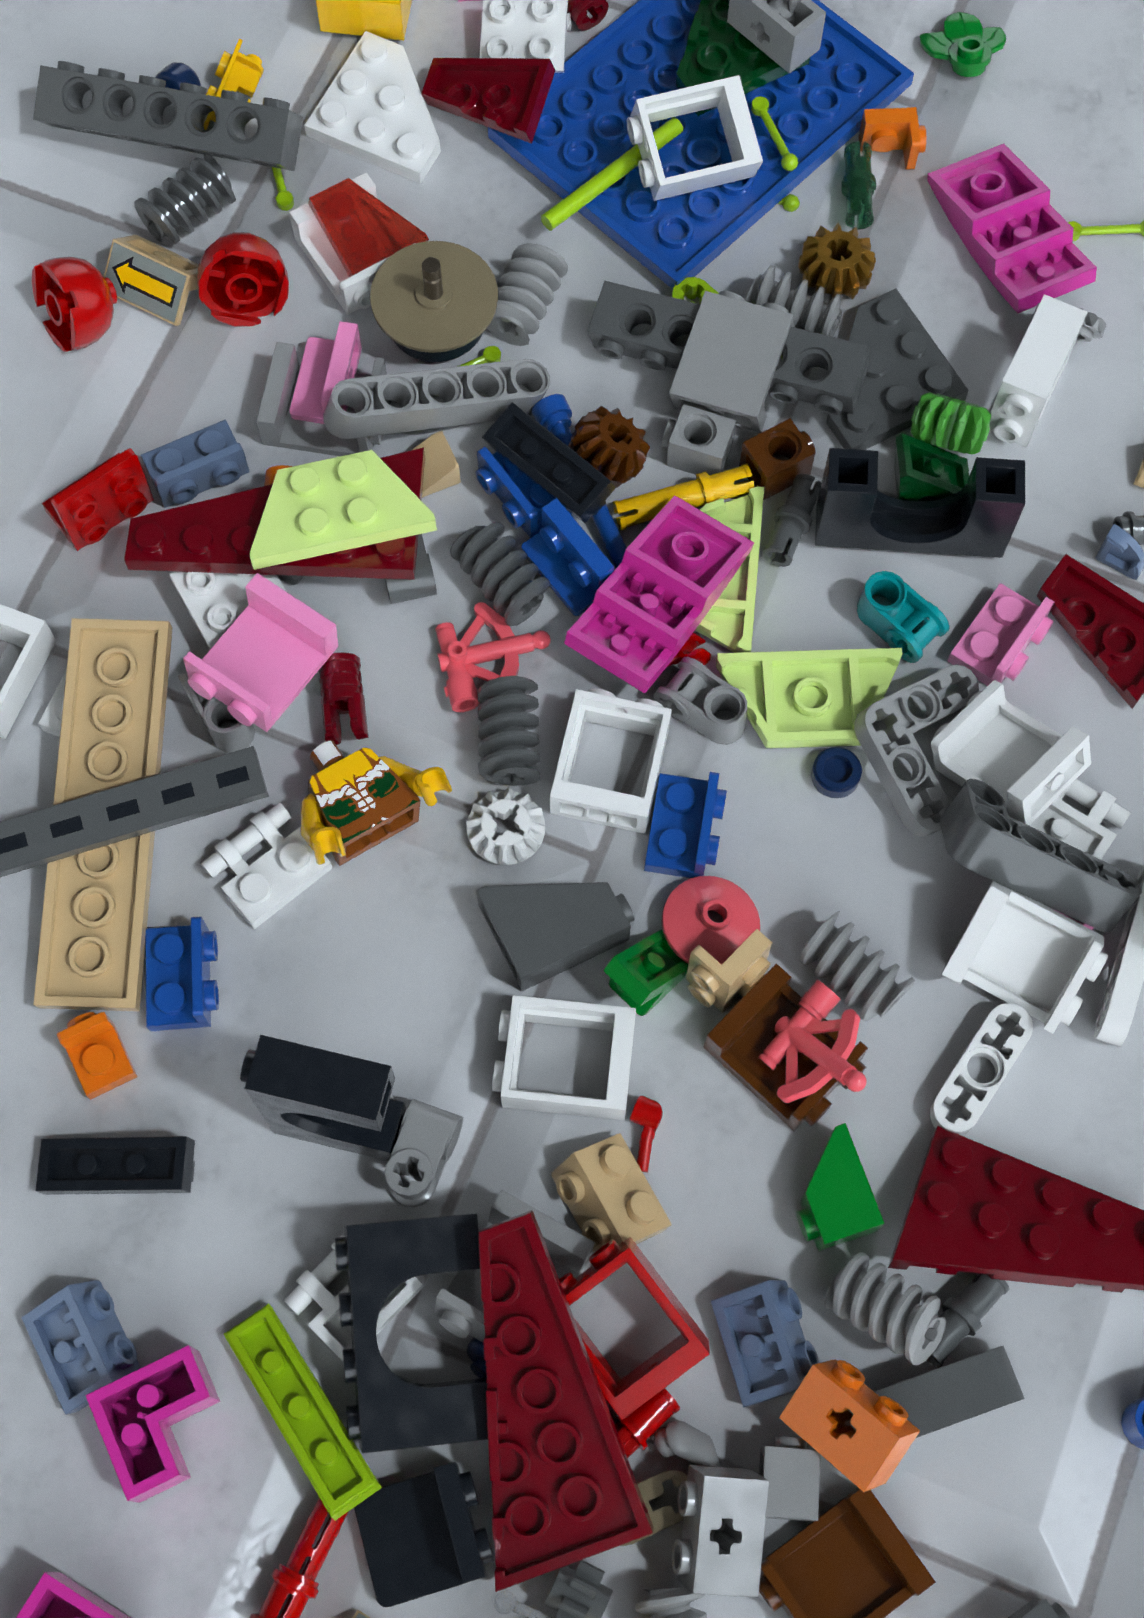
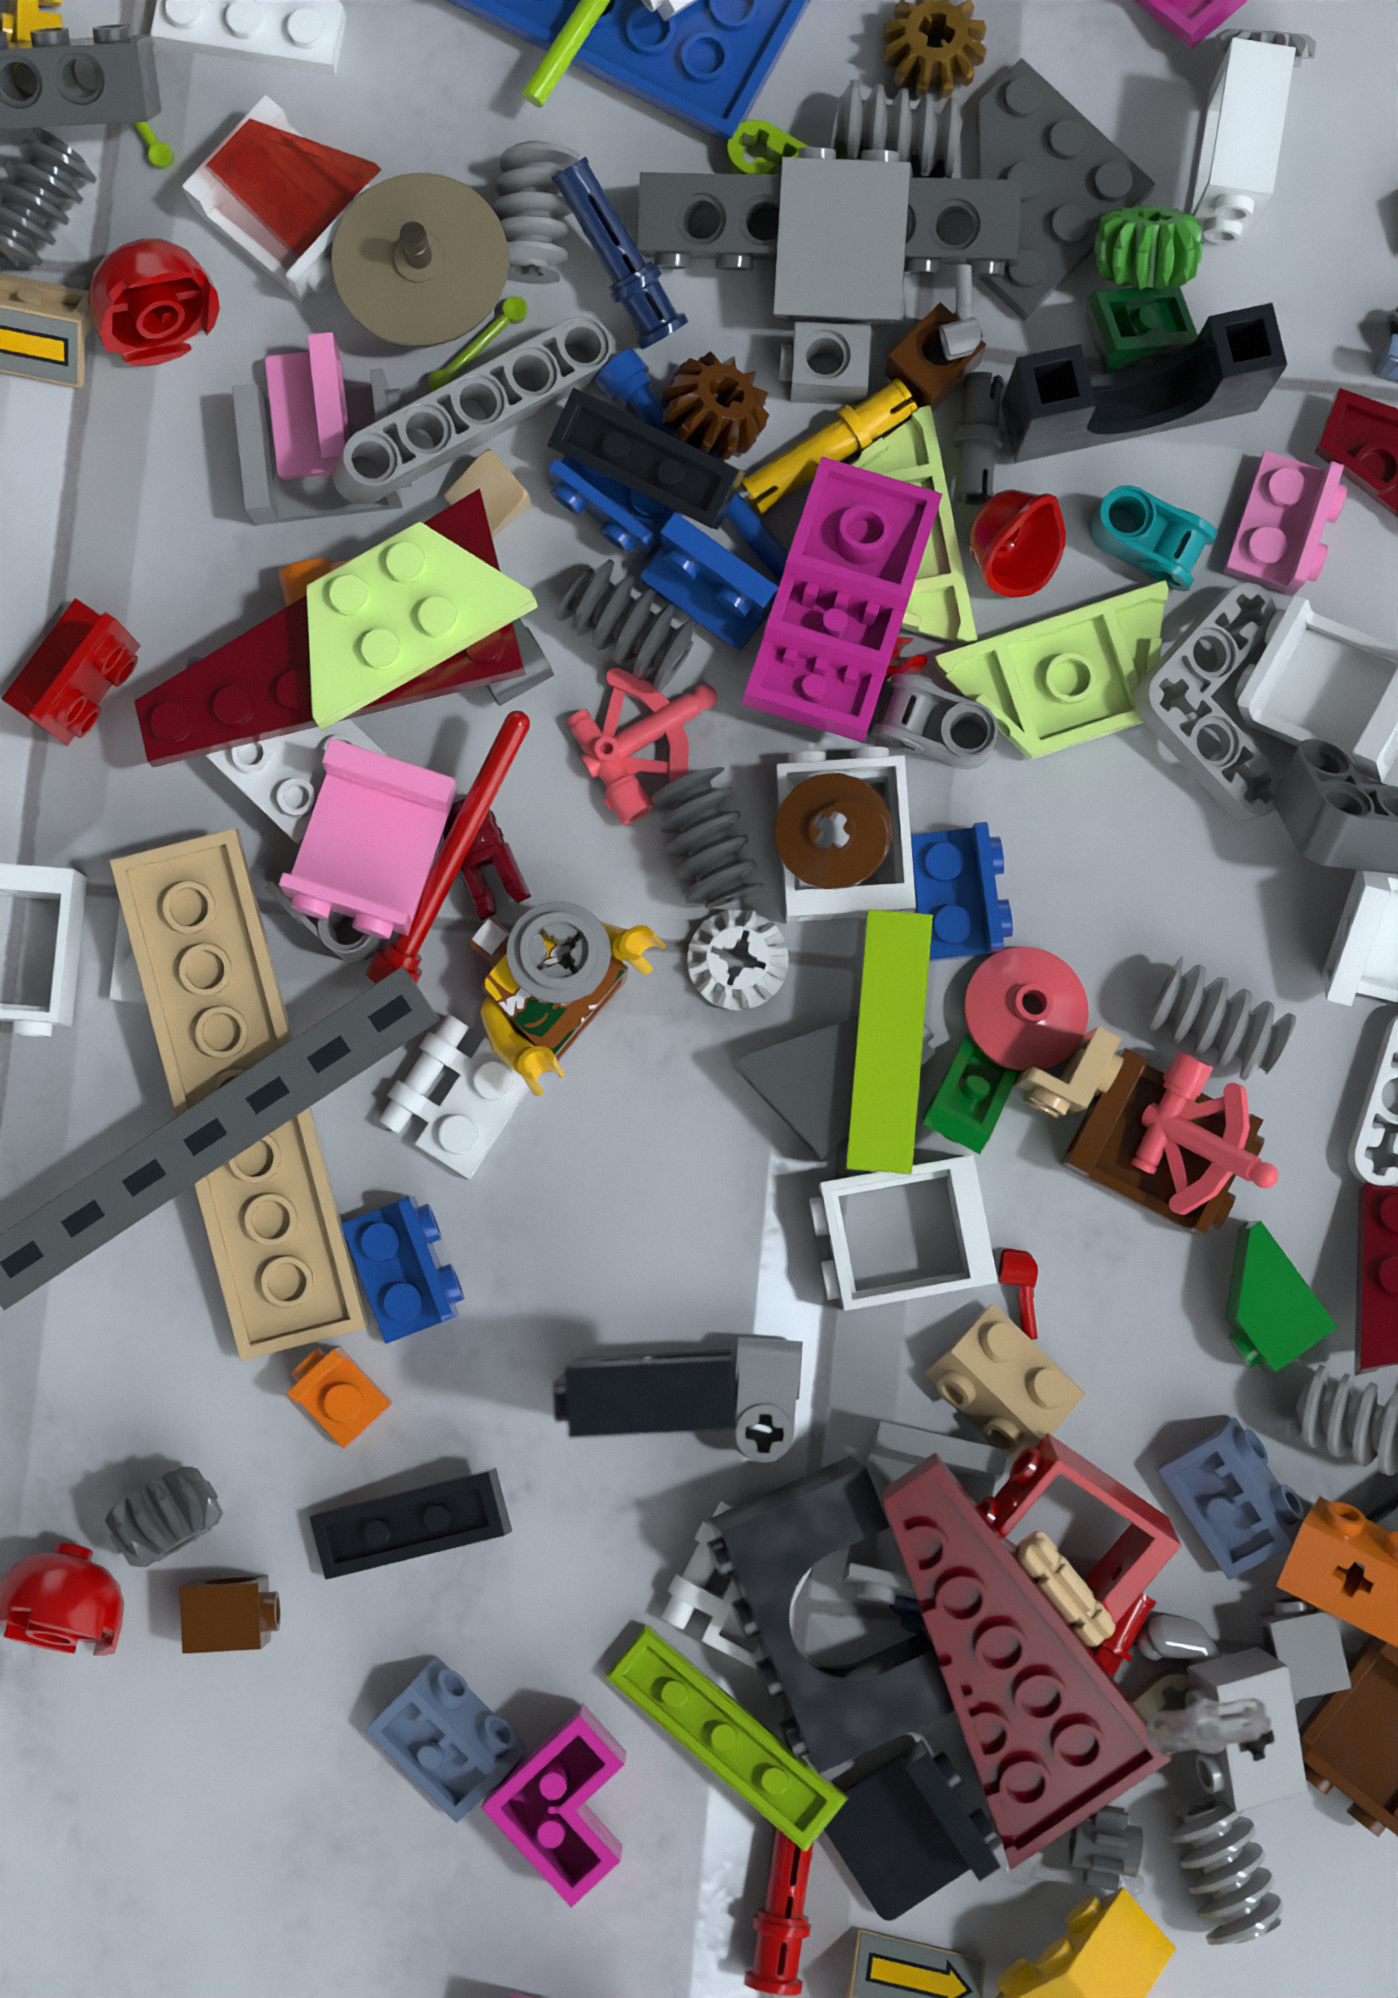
camera: 15 degrees left, 15 degrees up
(195, 464) = (180, 582): sand blue bracket -> none
(325, 680) = (453, 852): none -> red piece
(381, 754) = (559, 923): none -> light grey gear
(578, 351) = (634, 282): none -> dark blue pin
(596, 906) = (889, 1042): none -> lime tile
(605, 1359) = (1065, 1588): none -> tan axle
(615, 722) = (800, 837): none -> reddish brown piece
(686, 1504) = (1207, 1726): none -> clear axle
(797, 440) = (964, 335): none -> light grey hand
(801, 592) = (1018, 541): none -> red helmet
(836, 772) = (1125, 766): dark blue tile -> none

